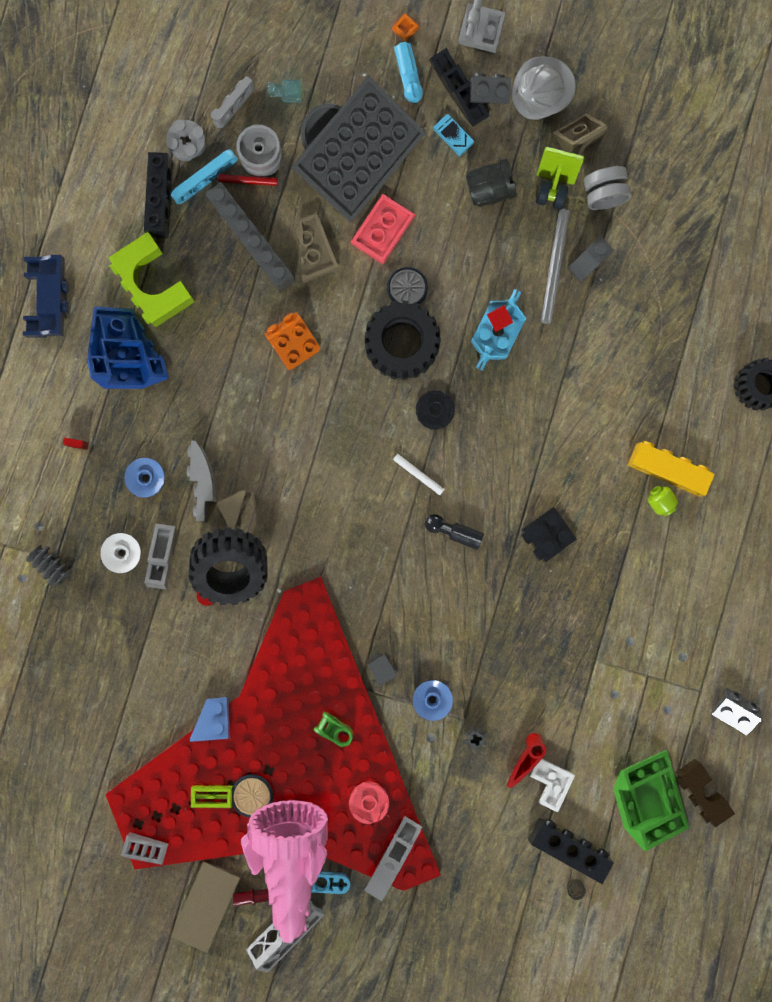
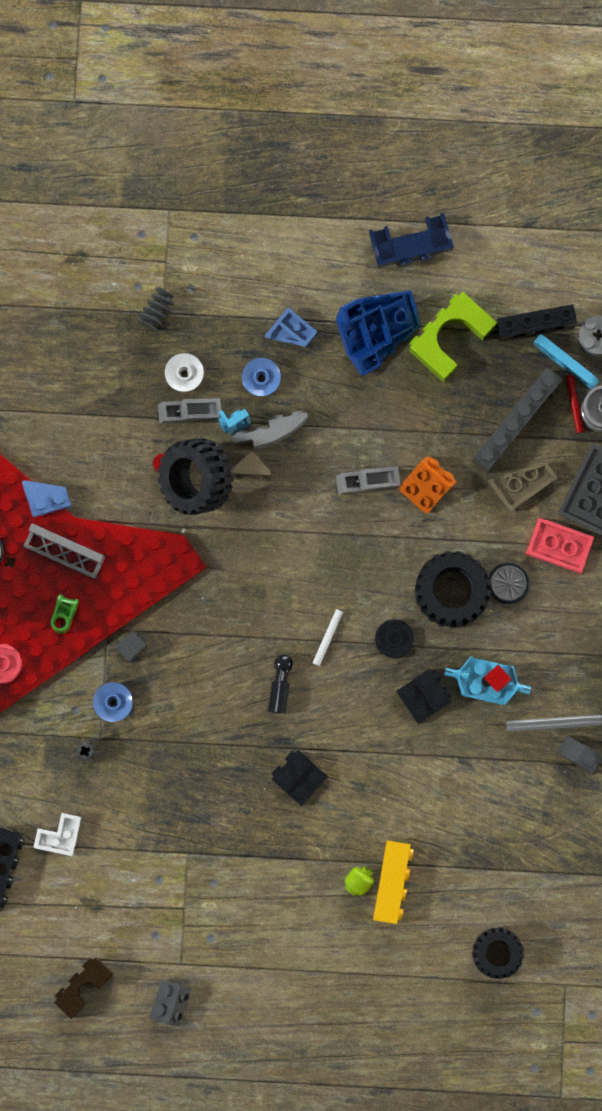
camera: 80 degrees right, 5 degrees down
(74, 443) = (277, 304): red tile -> none
(104, 436) = (292, 330): none -> medium blue wing
(184, 511) = (237, 422): none -> medium azure bracket
(257, 722) = (67, 544): none -> light grey fence
(274, 397) = (368, 480): none -> light grey slope
(498, 394) = (424, 696): none -> black plate
(530, 757) = (77, 806): red piece -> none
(650, 801) = (65, 936): bright green slope -> none

